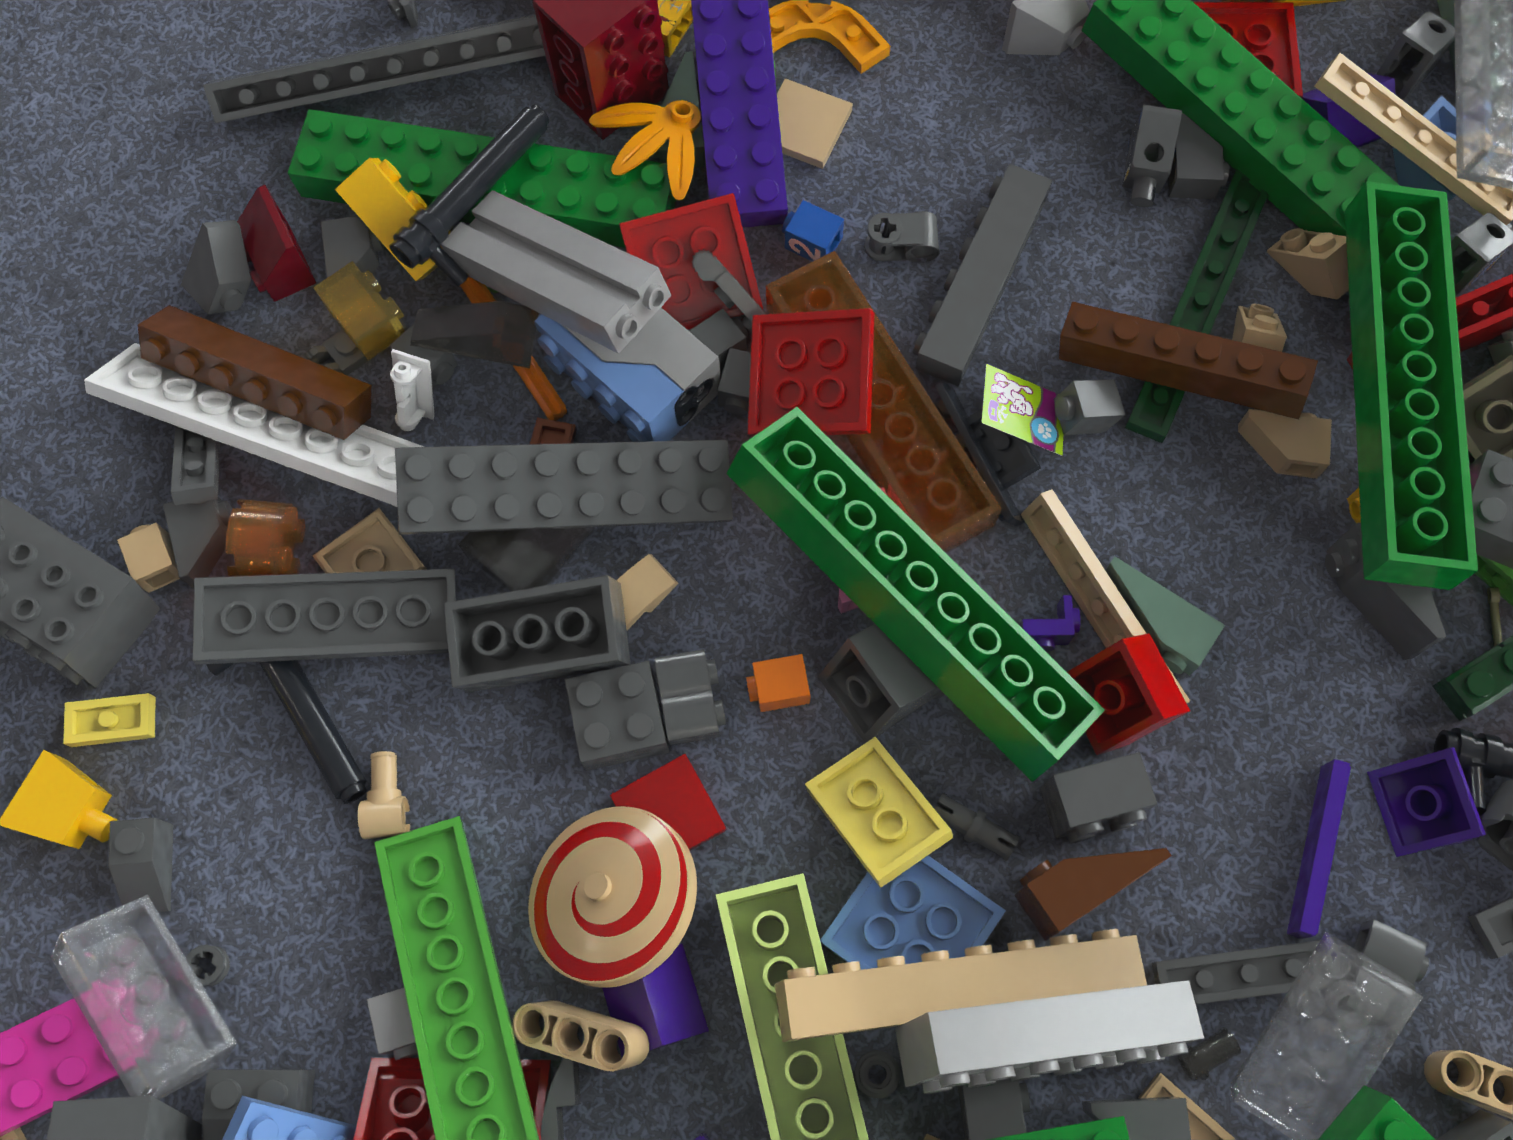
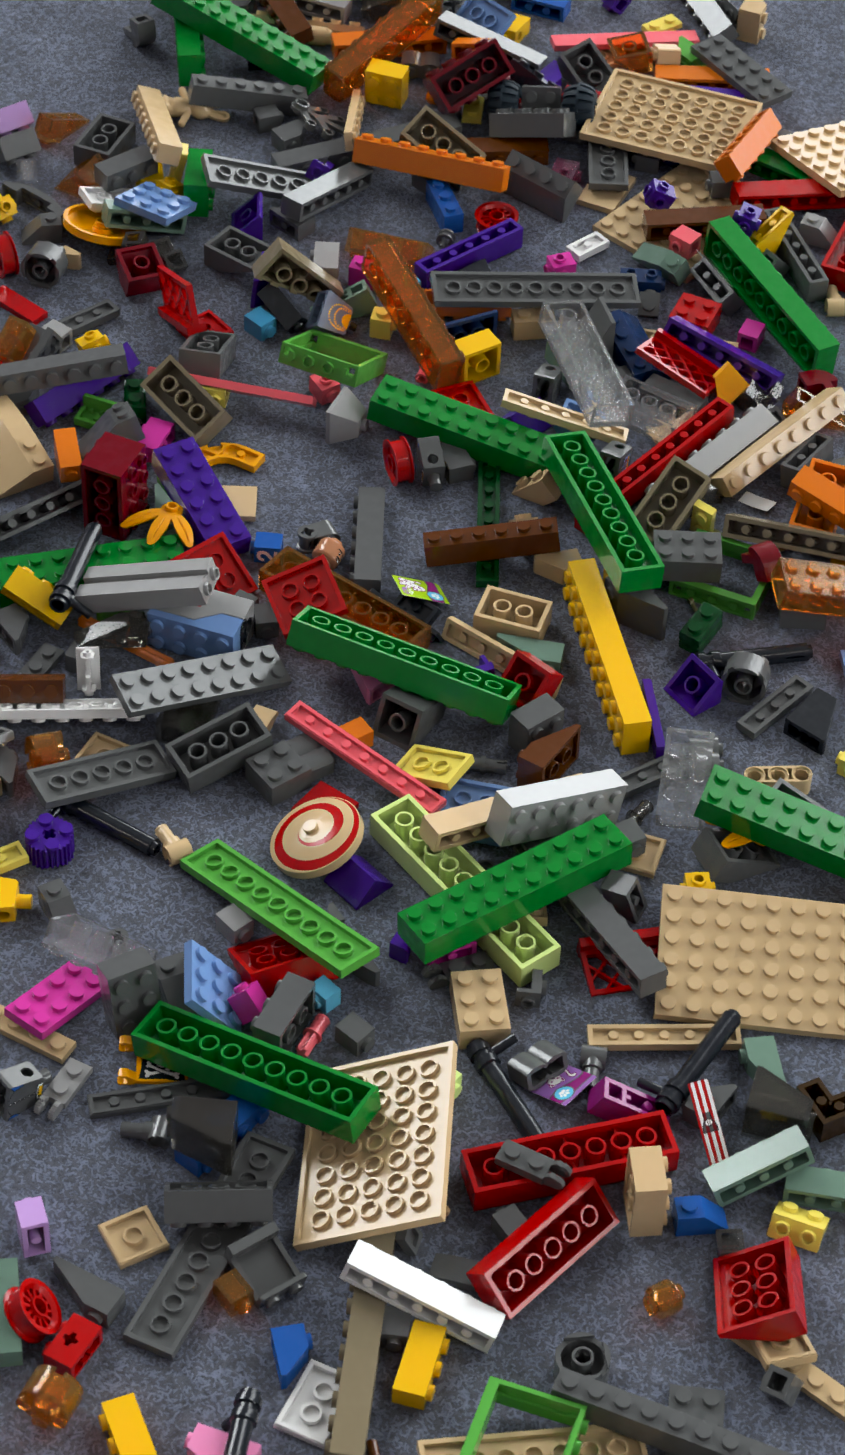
camera: 30 degrees left, 25 degrees down
(172, 706) = (49, 841): none -> dark purple brick
(360, 309) = (40, 643): clear yellow brick -> none
(561, 1037) = (342, 885): tan beam -> none
(729, 289) = (241, 579): dark grey hinge -> none
(768, 758) = (362, 757): none -> coral tile
(904, 279) = (332, 549): none -> nougat head
(1089, 407) = (453, 579): dark grey brick -> none
(1098, 132) = (398, 460): none -> red wheel
(1156, 526) = (512, 614): none -> tan brick
(1290, 688) = (607, 656): none -> yellow brick

